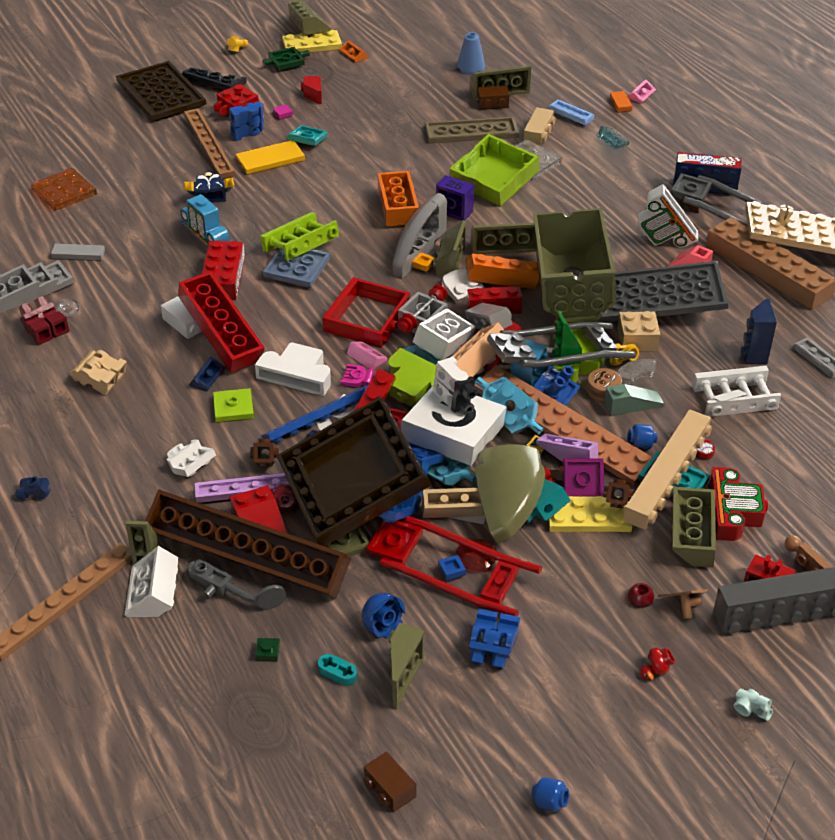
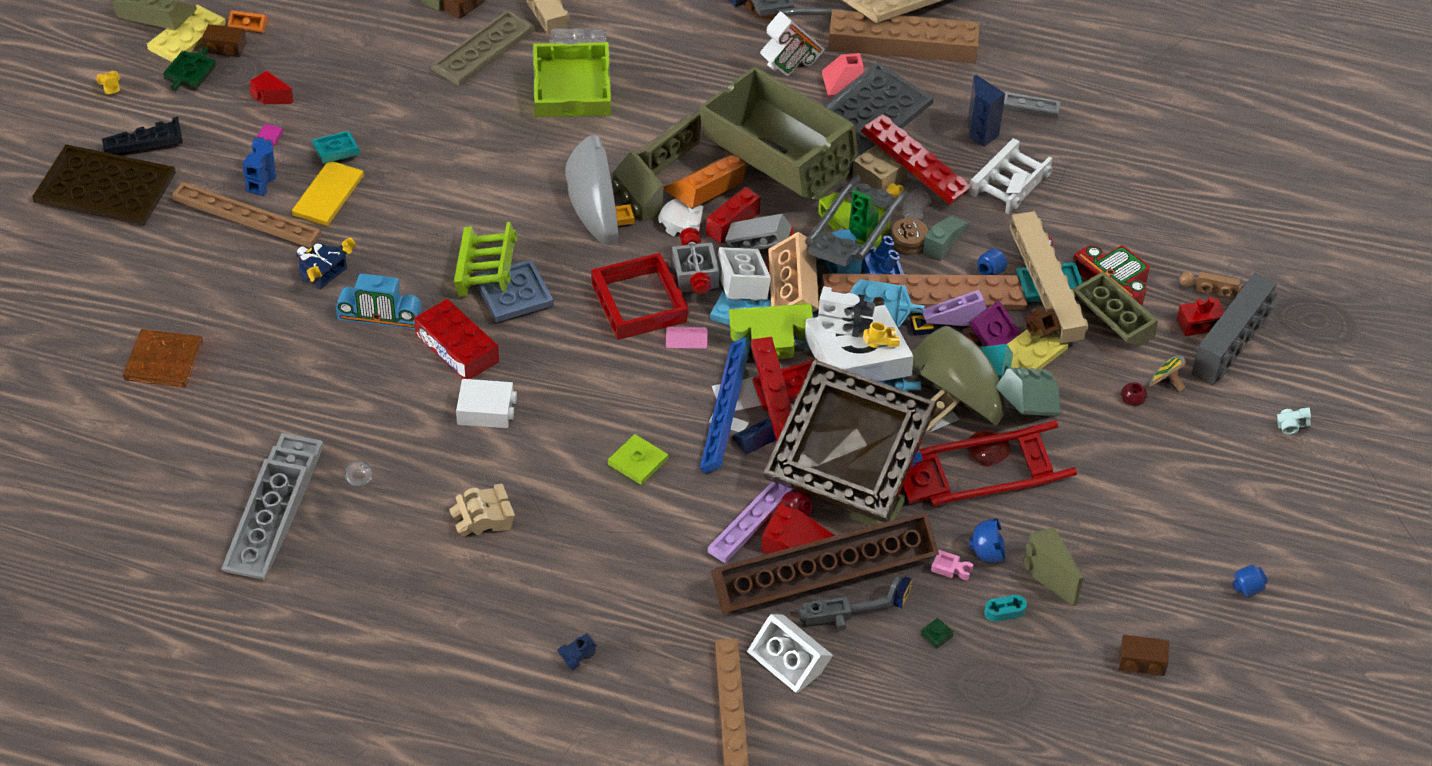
camera: 45 degrees left, 5 degrees up
(43, 321) = (357, 501): dark red hips -> none
(78, 252) = (280, 413): light grey tile -> none
(141, 539) = (747, 623): olive slope -> none
(189, 458) = (670, 530): white slope -> none
(207, 375) = (575, 448): dark blue slope -> none
(220, 321) = (542, 388): red brick -> none
(234, 97) = (214, 150): red hinge -> none
(256, 452) = (730, 480): reddish brown brick -> none
(278, 603) = (903, 591): none -> clear blue tile
(296, 368) = (651, 388): white brick -> none
(324, 53) = (224, 40): none -> reddish brown brick
(337, 610) = (948, 565): none -> bright pink plate
(357, 375) = (707, 361): dark pink piece -> none
(397, 197) = (521, 163): orange brick -> none
(452, 567) = (986, 469): blue plate -> none
(458, 196) = (573, 128): dark purple brick -> none
(462, 418) = (879, 335): none -> yellow plate
(493, 637) = (1083, 498): blue hips -> none
(546, 533) = (1031, 391): none -> sand green slope
(660, 663) = (1208, 434): red animal -> none
(666, 336) = (916, 159): none -> red plate

